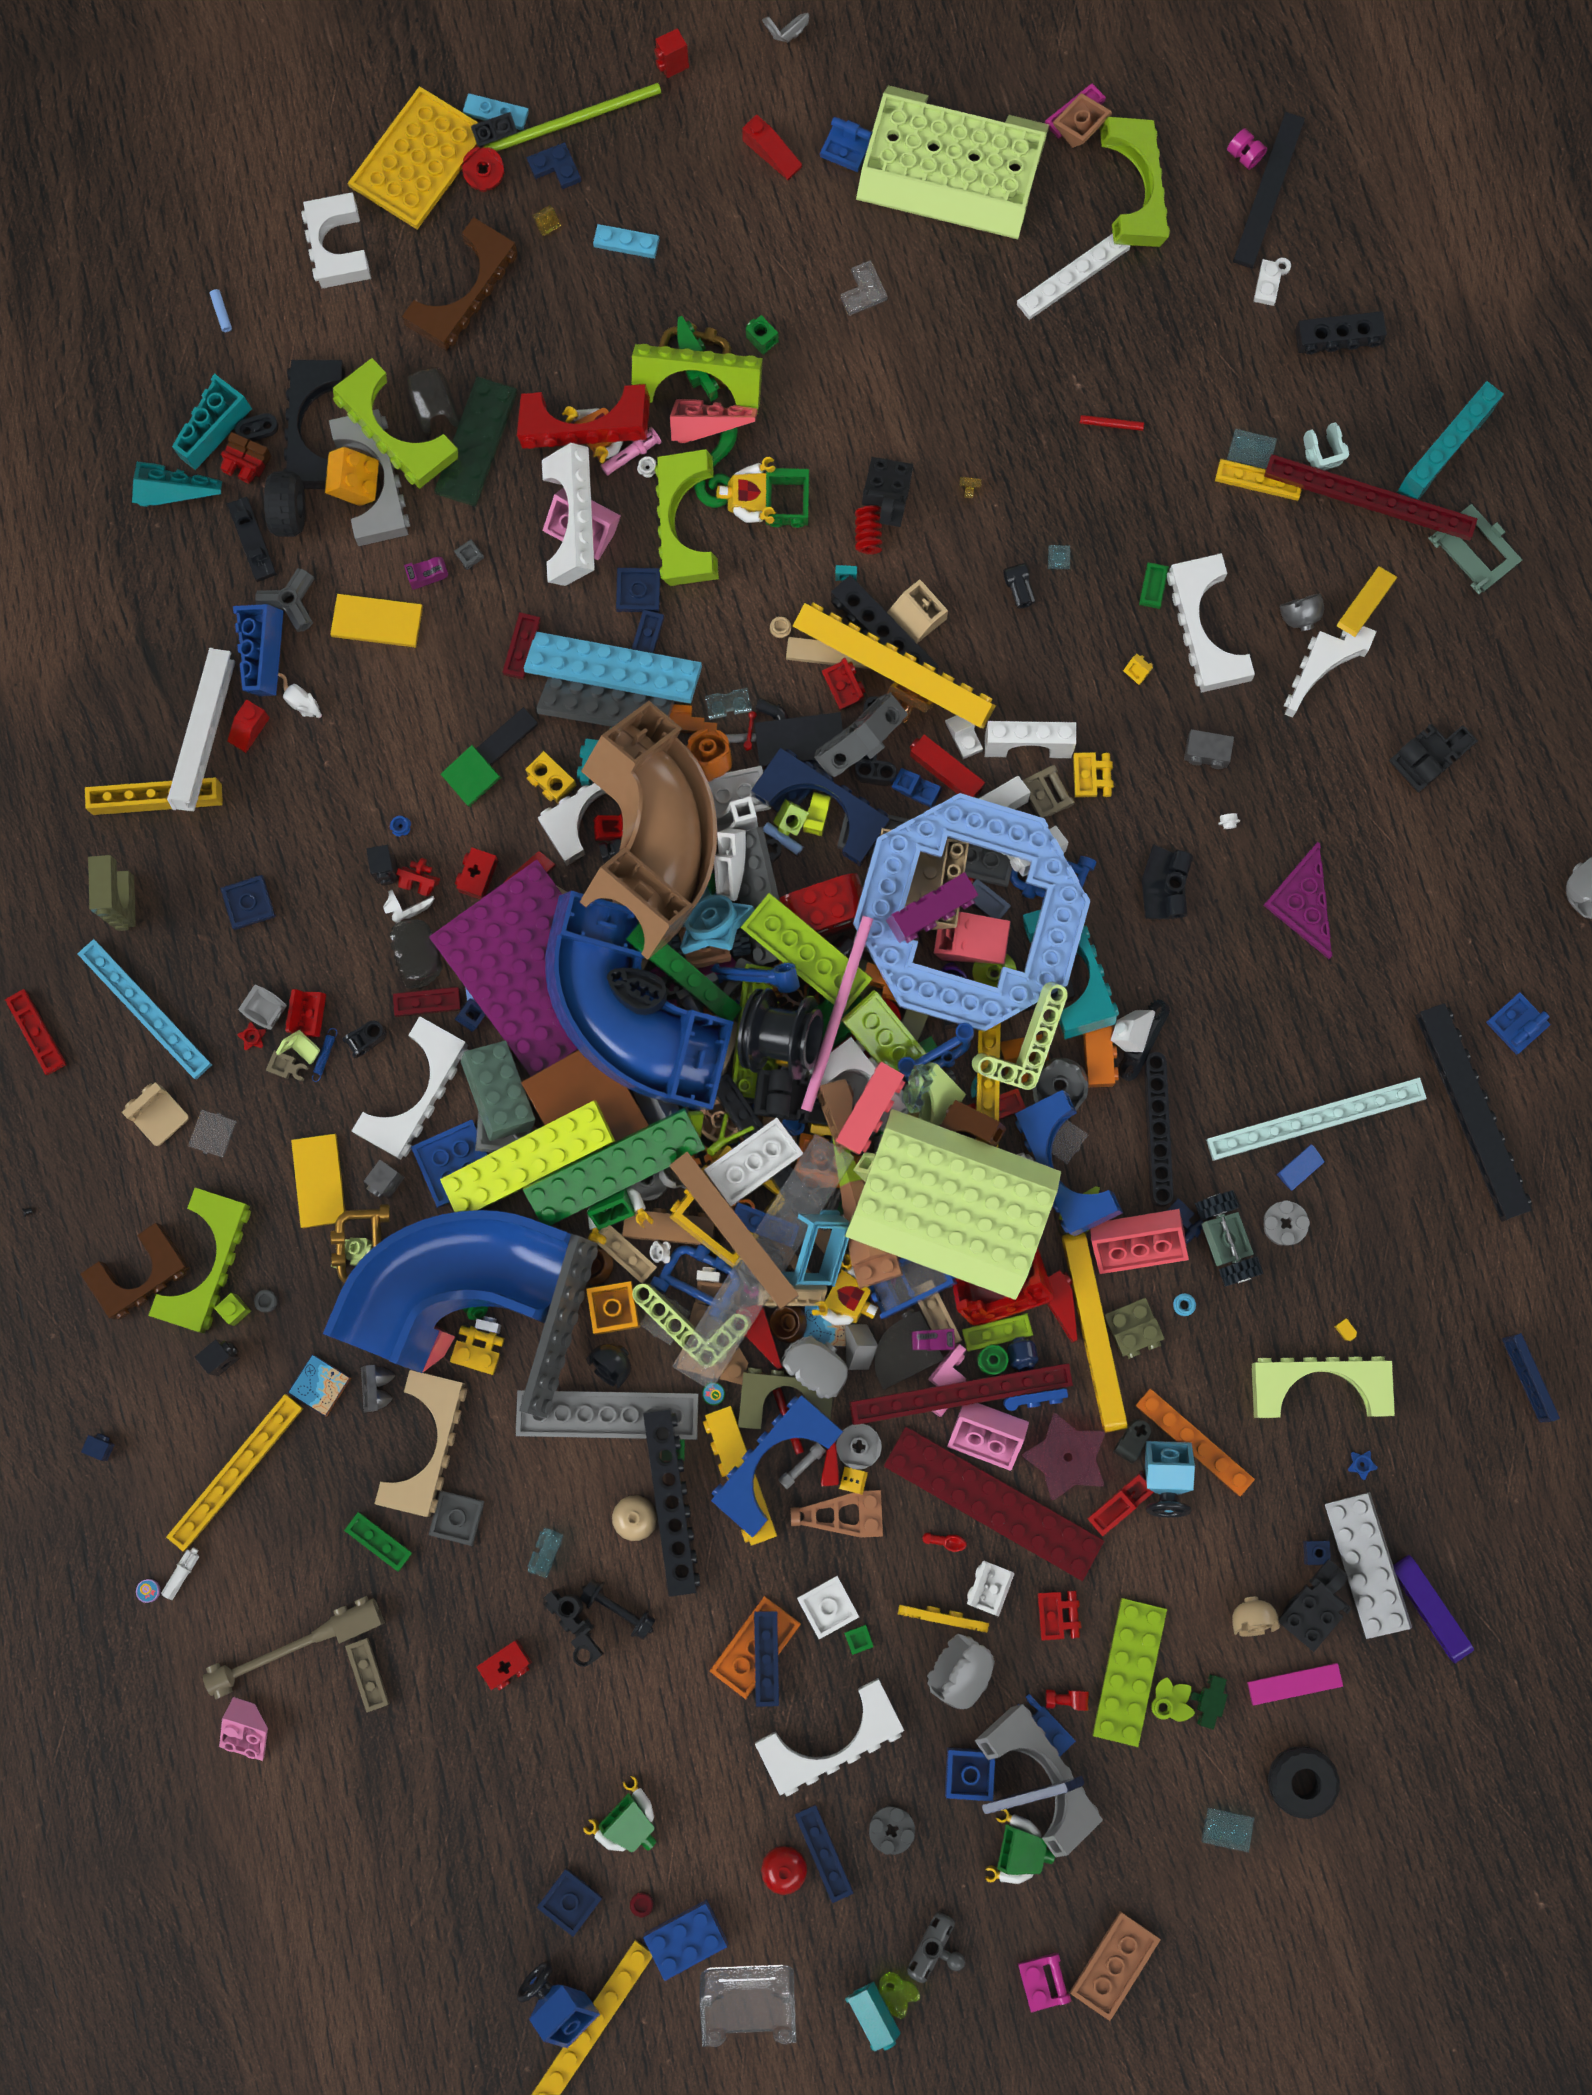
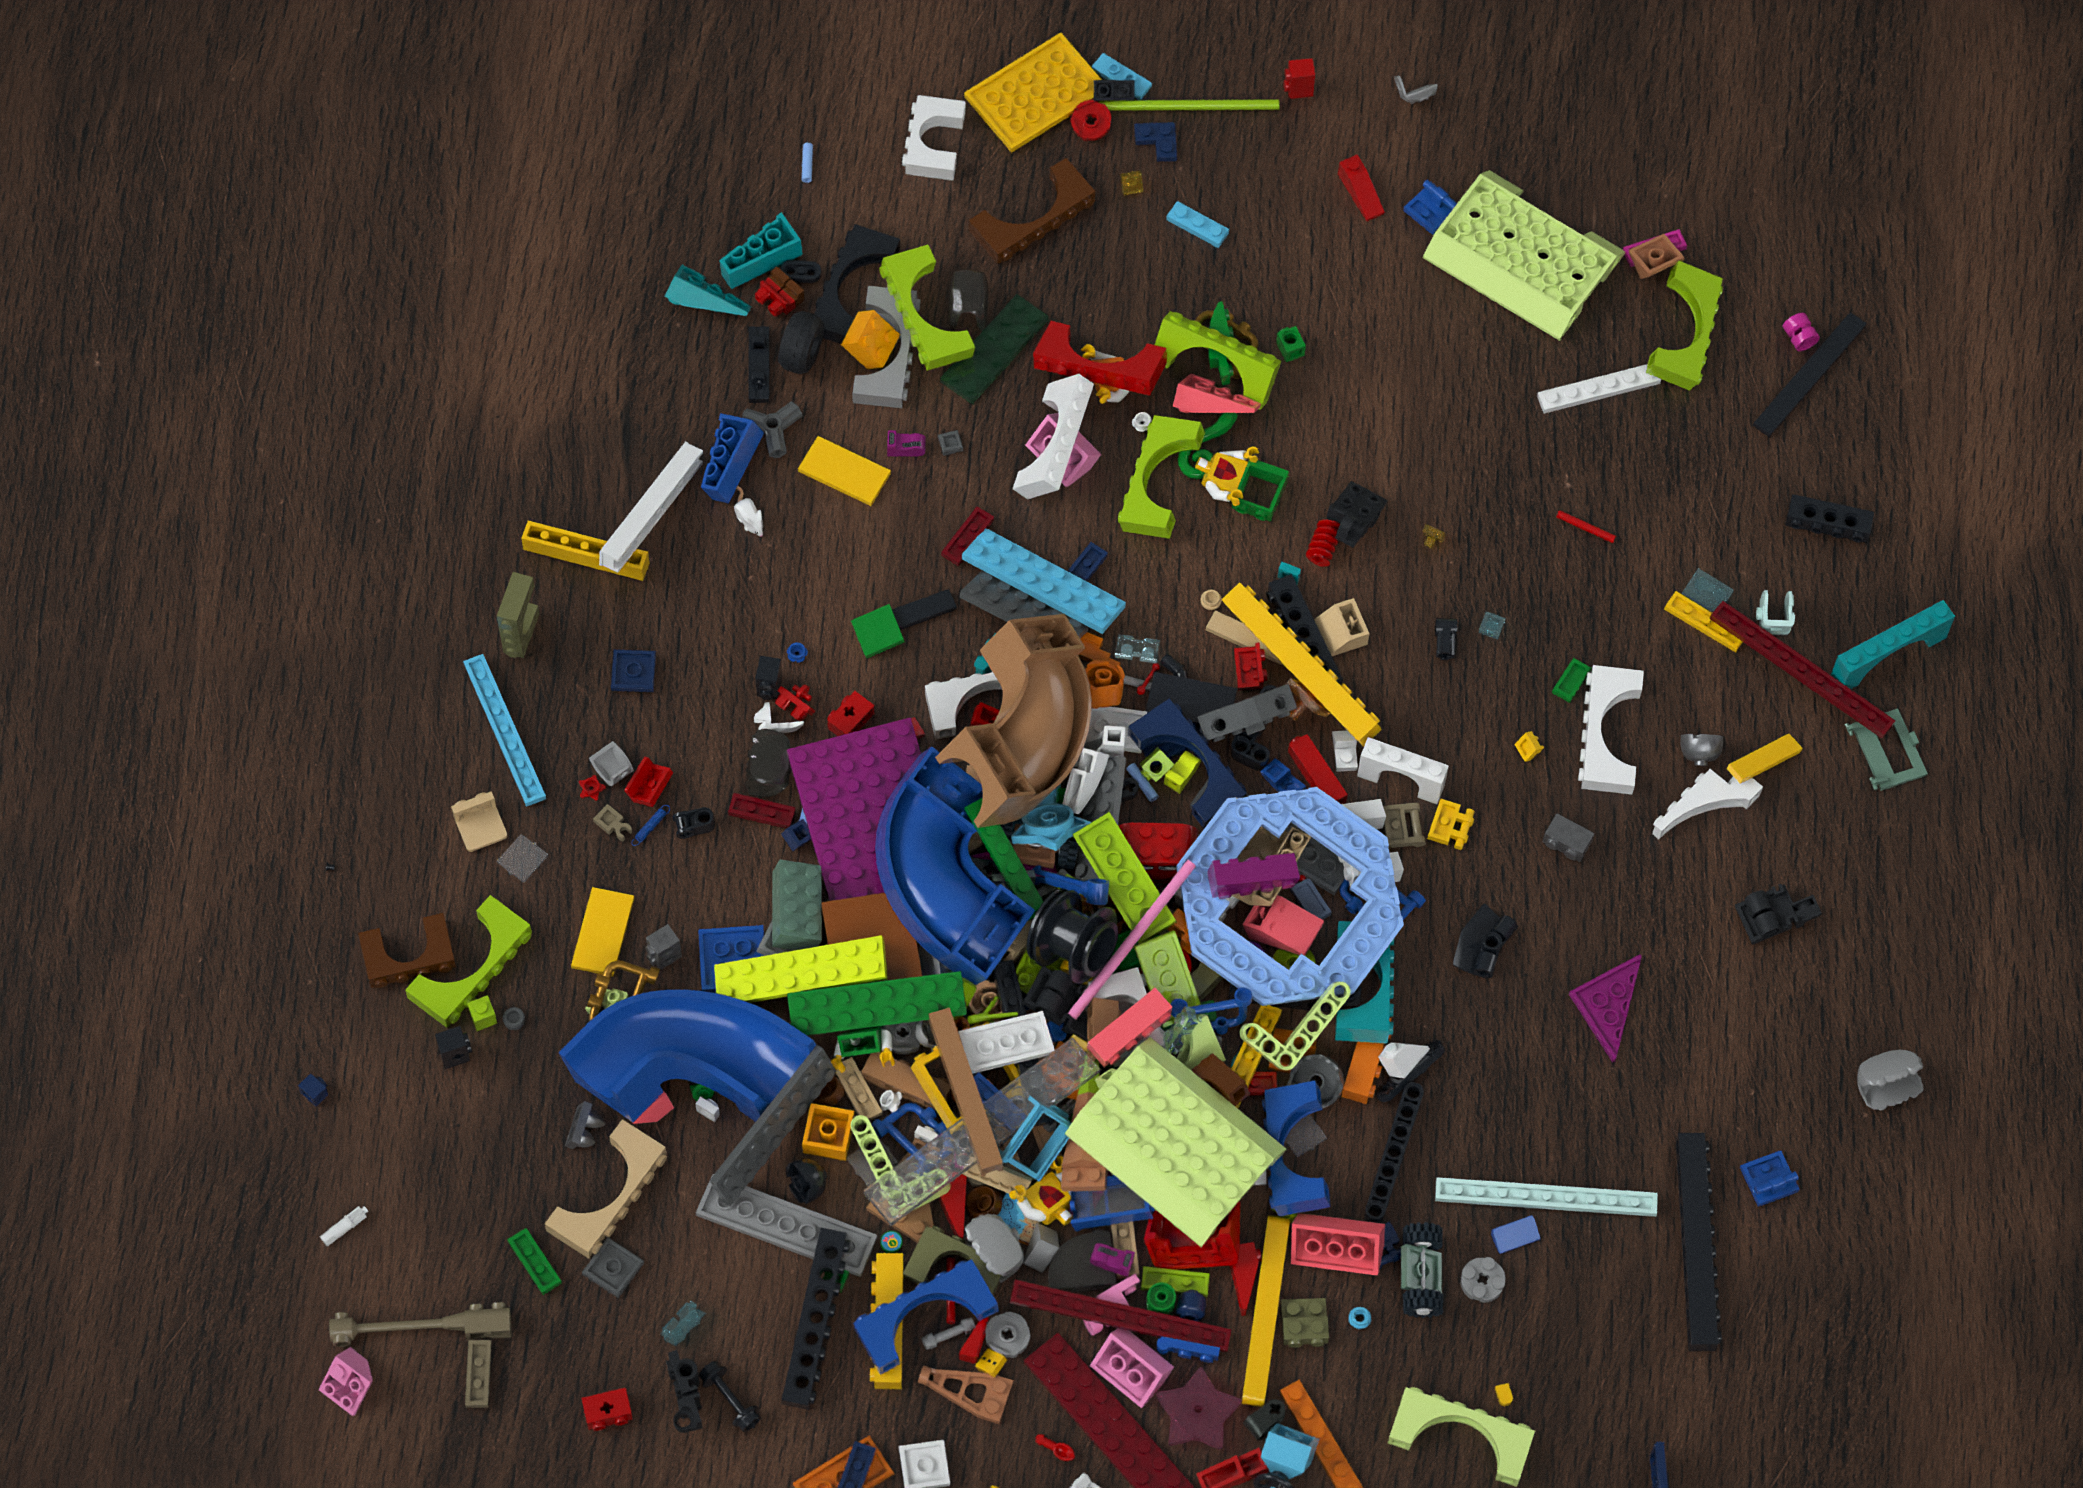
camera: 15 degrees right, 15 degrees down
(35, 1032) = (399, 715): red plate -> none
(148, 1590) = (308, 1230): tile -> none
(234, 1472) = (427, 1155): yellow plate -> none
(247, 725) = (692, 520): red slope -> none
(301, 1045) = (633, 808): yellowish green bracket -> none
(319, 1385) = (533, 1108): tile -> none
(397, 1132) = (691, 913): white arch -> none
(475, 1357) = (686, 1134): yellow plate -> none
(554, 775) = (953, 656): yellow brick -> none
(627, 454) = (1140, 402): bright pink pin -> none
(633, 979) = (947, 849): black piece -> none
(634, 1518) = (776, 1324): tan cylinder -> none
(638, 589) = (1092, 523): dark blue plate -> none
(869, 289) = (1403, 340): clear plate -> none
(1229, 821) = (1563, 907): white plate -> none
(1269, 280) = (1781, 452): white hinge -> none

